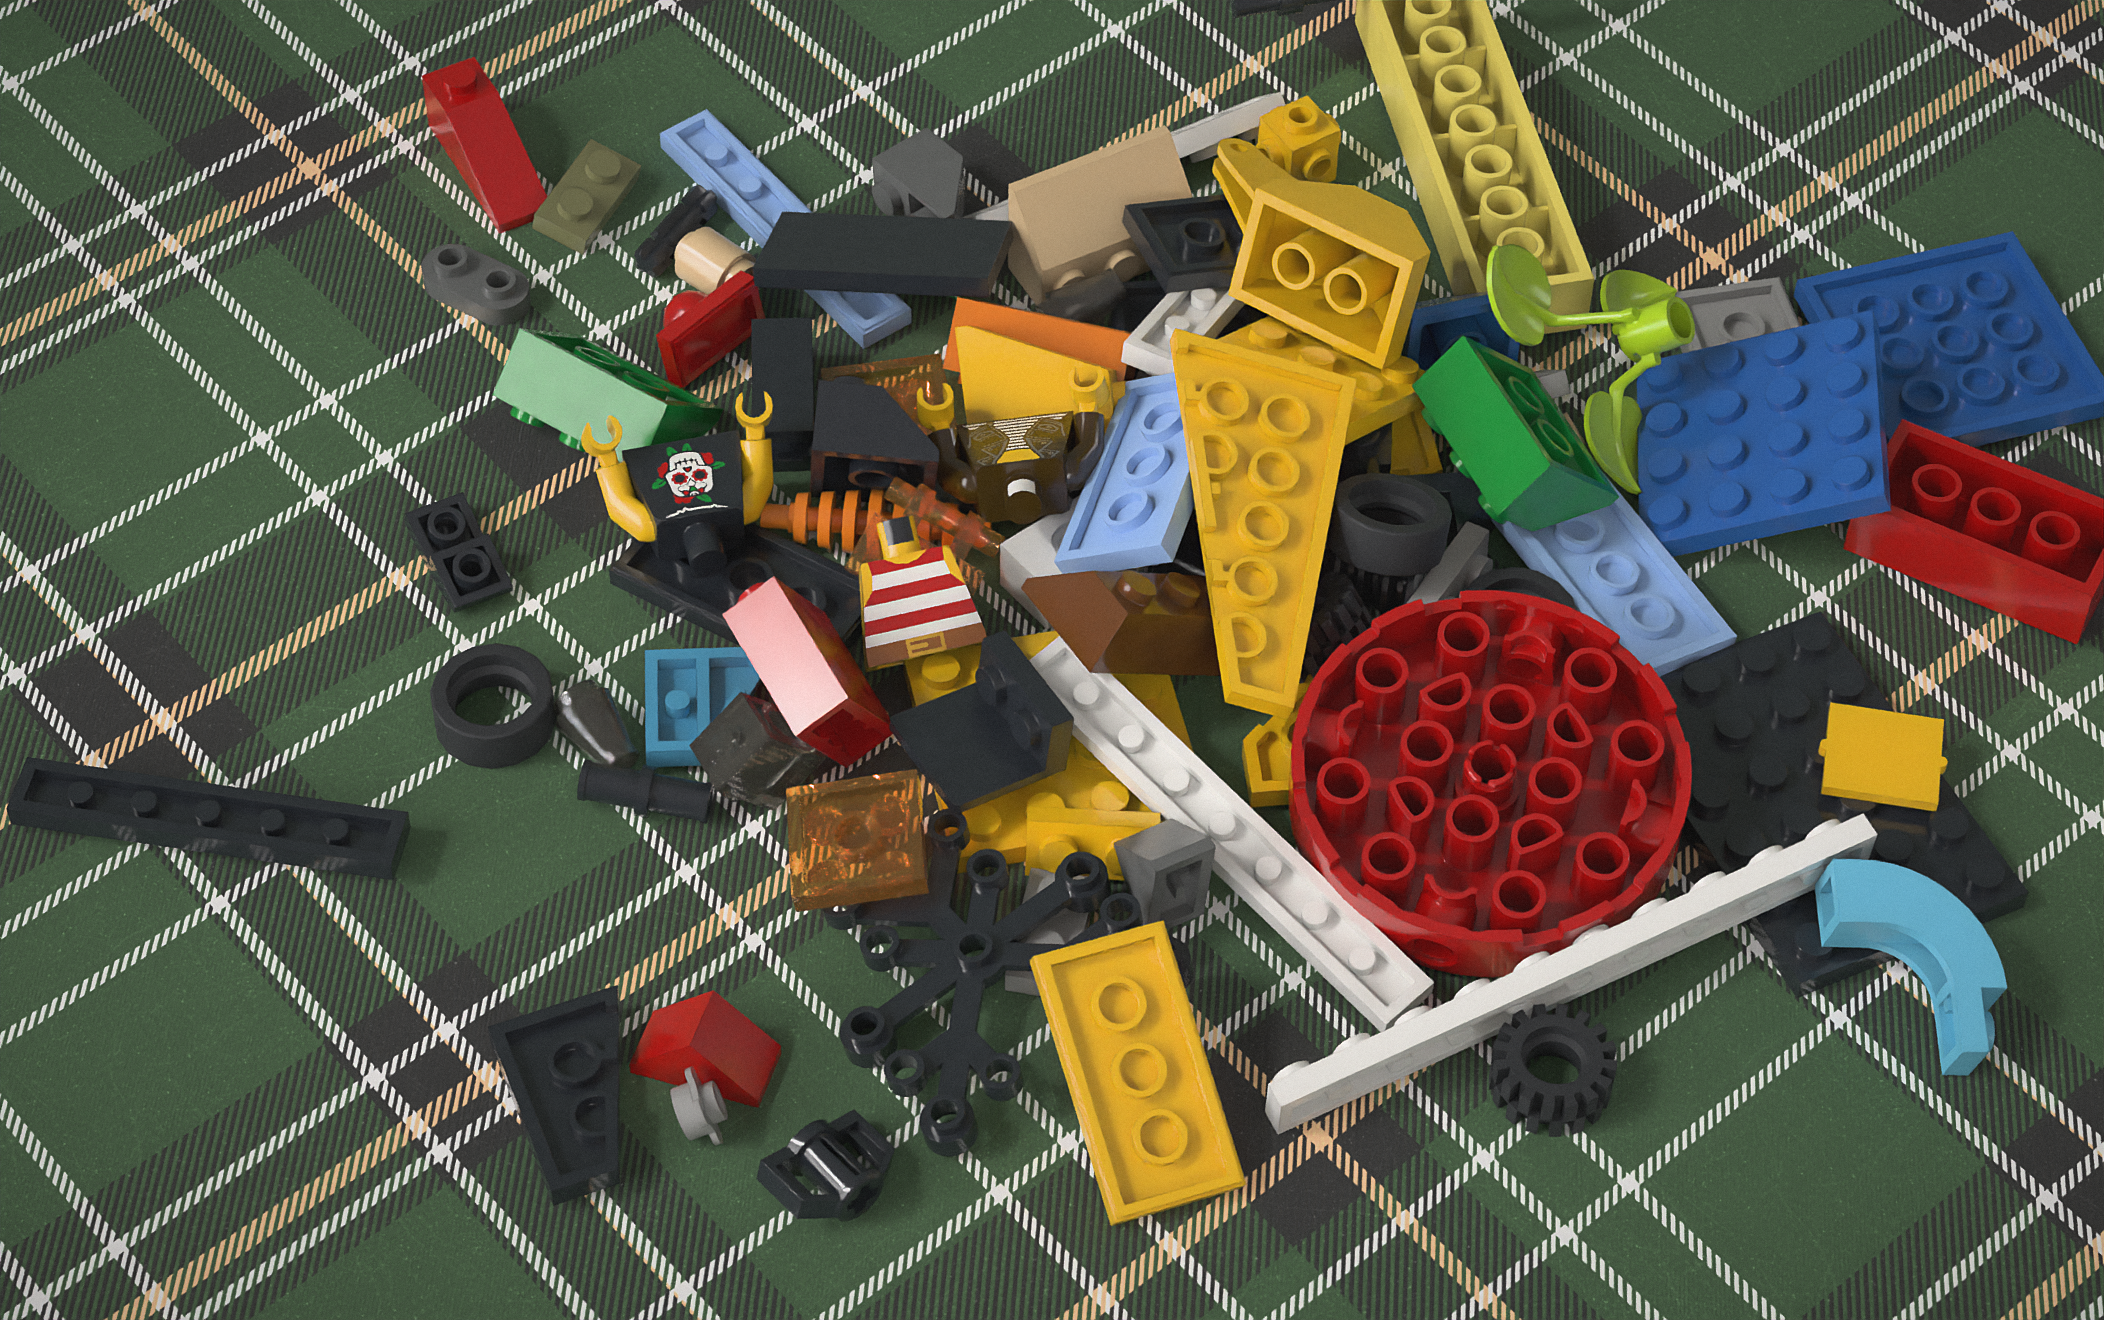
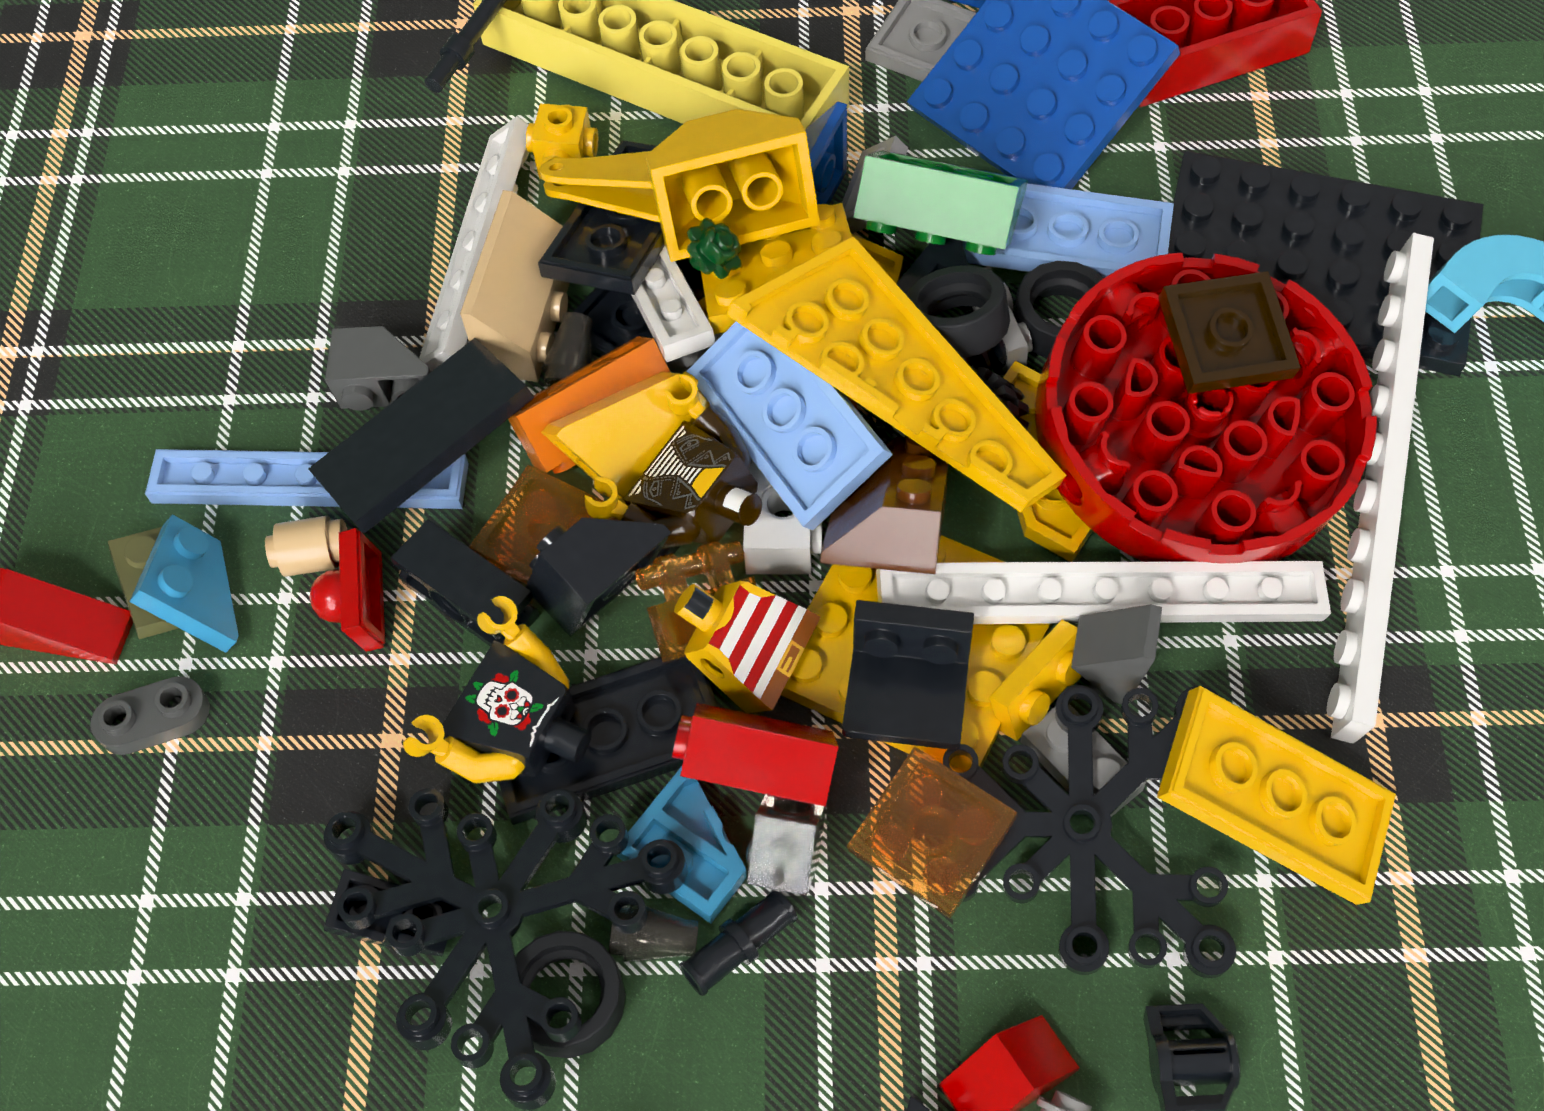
camera: 45 degrees left, 10 degrees up
(510, 607) = (434, 880): none -> black plant
(576, 381) = (350, 708): slope -> none
(604, 216) = (188, 584): none -> dark azure wing
(656, 251) = (242, 548): black axle -> none
(850, 521) = (618, 625): orange piece -> none
(1260, 306) = (713, 248): none -> dark green plant
(1545, 1101) = (1454, 526): black tyre -> none
(1558, 719) = (1228, 332): none -> dark brown plate
(1643, 318) = (932, 67): lime plant -> none
(1882, 757) = (1334, 198): yellow piece -> none

